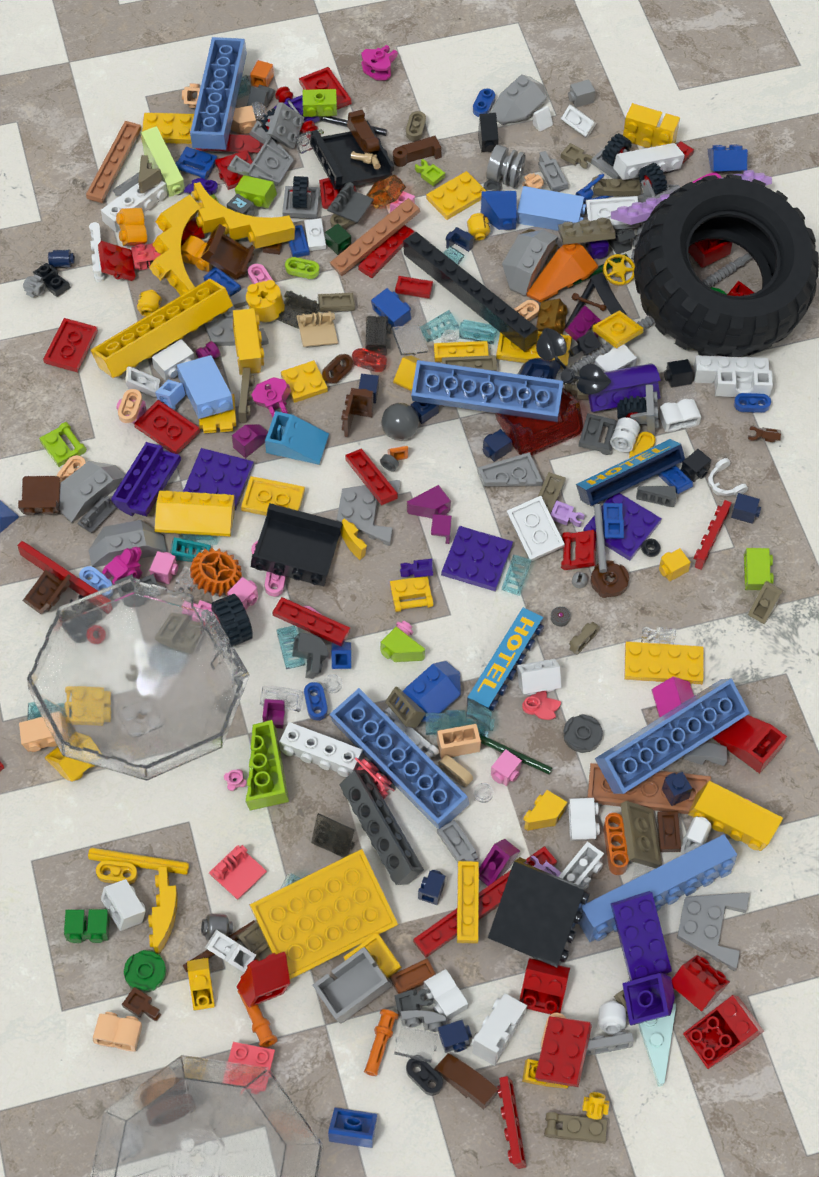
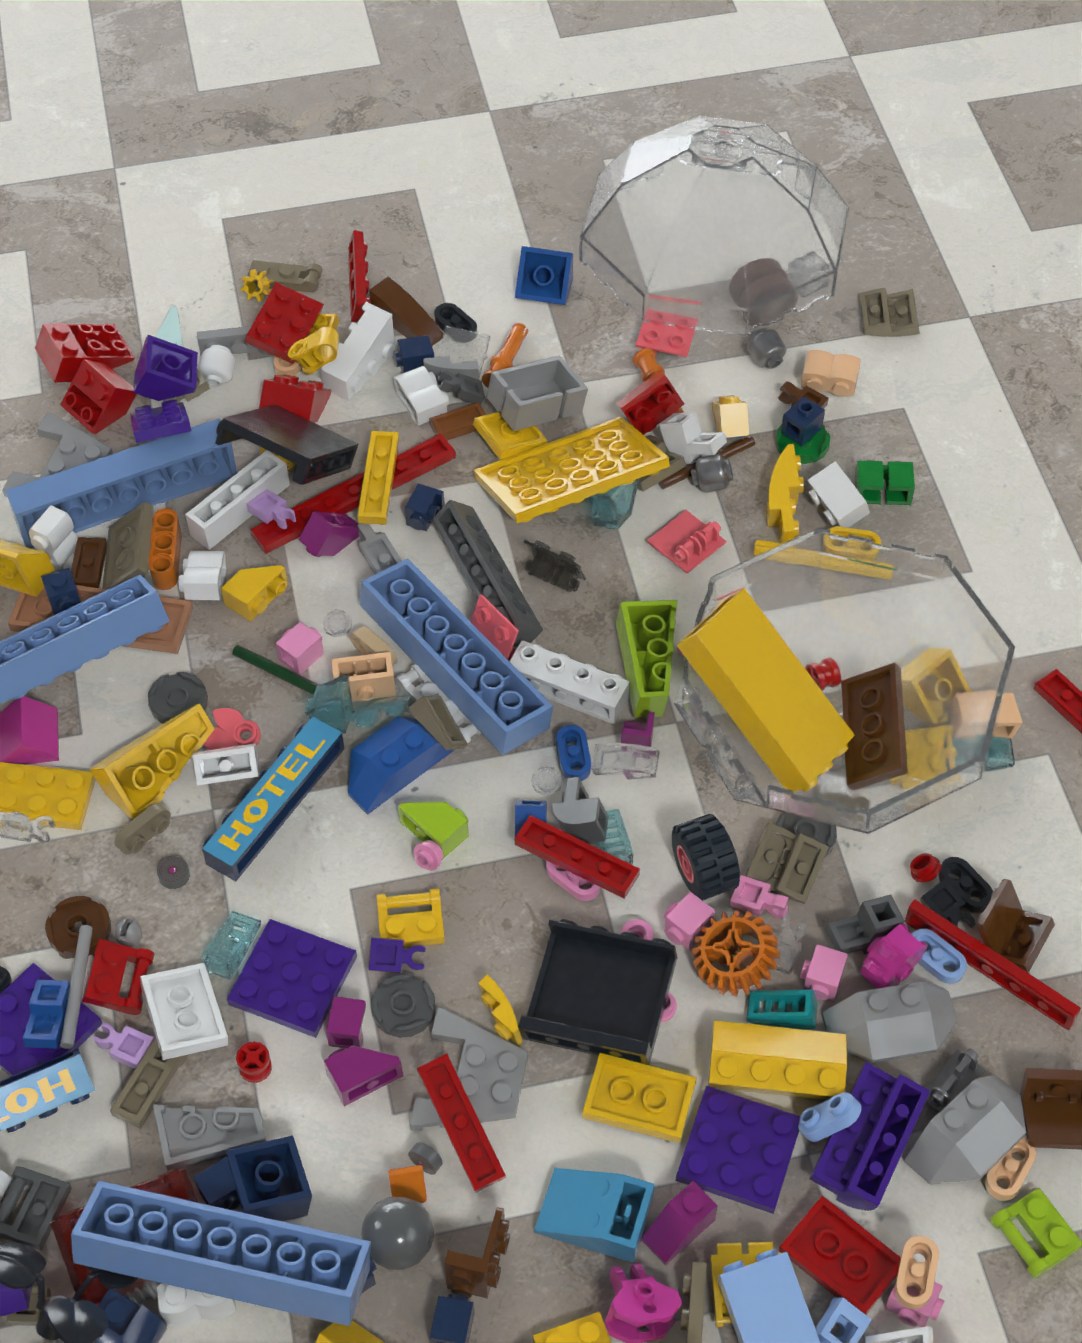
camera: 175 degrees left, 5 degrees down
(61, 1107) = (889, 313): none -> dark tan slope
(119, 694) = (876, 717): none -> reddish brown plate
(144, 971) = (802, 421): none -> dark blue brick
(149, 738) = (825, 673): none -> red wheel
(165, 1052) = (766, 348): none -> flat silver head
(169, 484) = (829, 1117): none -> light blue plate
(190, 683) = (767, 692): none -> yellow brick
(410, 545) = (403, 1005): none -> dark grey tile
(471, 440) = (270, 1179): none -> dark blue slope
(491, 503) = (252, 1054): none -> red wheel
(532, 1012) = (315, 350): none -> yellow piece
(595, 673) = (147, 766): none -> yellow wedge

